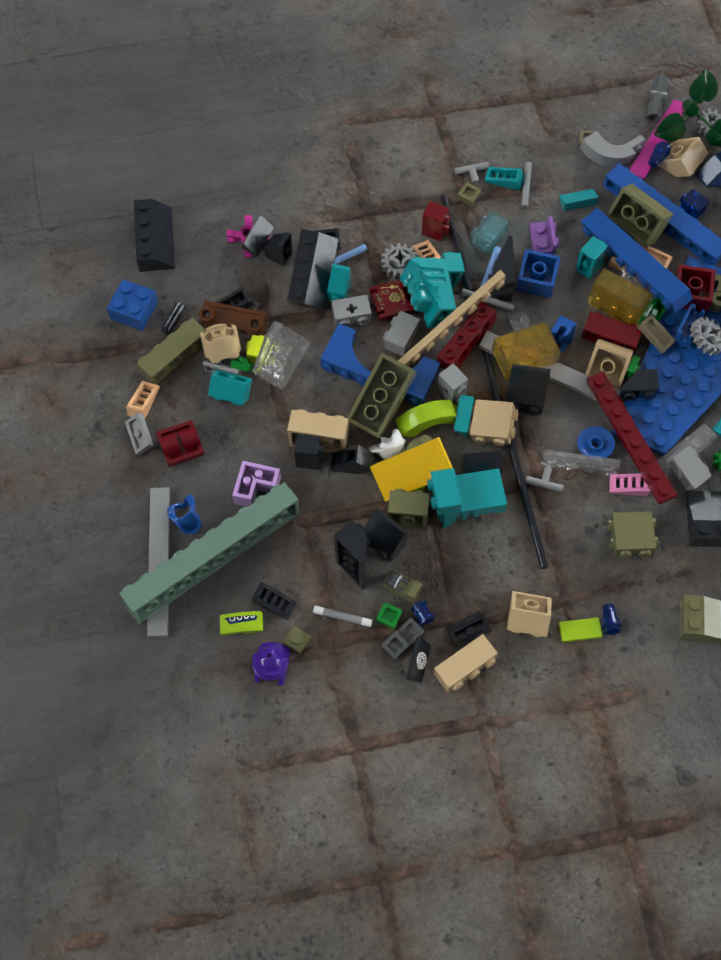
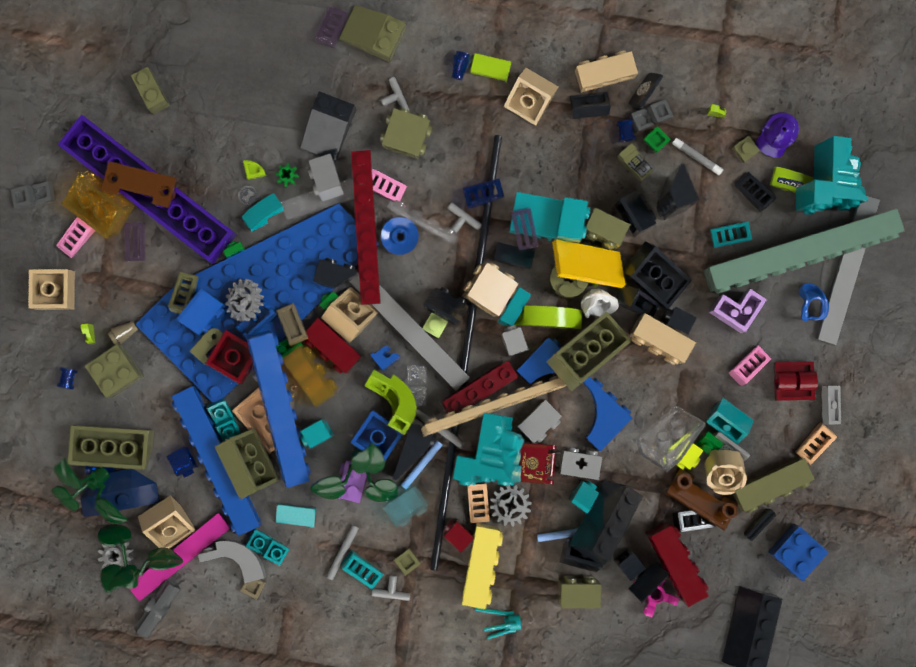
camera: 160 degrees left, 20 degrees up
(197, 629) = (835, 179): none -> teal brick
(223, 435) = (741, 375): none -> bright pink slope
(238, 259) = (676, 562): none -> dark red brick
(277, 563) = (747, 233): none -> teal slope
(314, 211) = (579, 592): none -> olive brick
(339, 665) = (714, 110): none -> lime tile
(343, 490) = (656, 274): none -> black slope
(361, 178) = (511, 622): none -> teal plant
(406, 205) = (480, 567): none -> light yellow brick
(477, 458) = (521, 212): none -> tile
(527, 347) = (429, 350): clear yellow brick -> none
(529, 304) = (398, 396): none -> lime arch
(541, 234) = (362, 461): none -> dark green plant
(546, 496) = (473, 189): none -> clear blue slope
(591, 170) = (267, 546): none -> teal slope
(658, 571) = (396, 96): none -> light grey piece
(659, 153) = (189, 533): clear blue cone -> none
(672, 246) = (224, 419): none -> teal slope

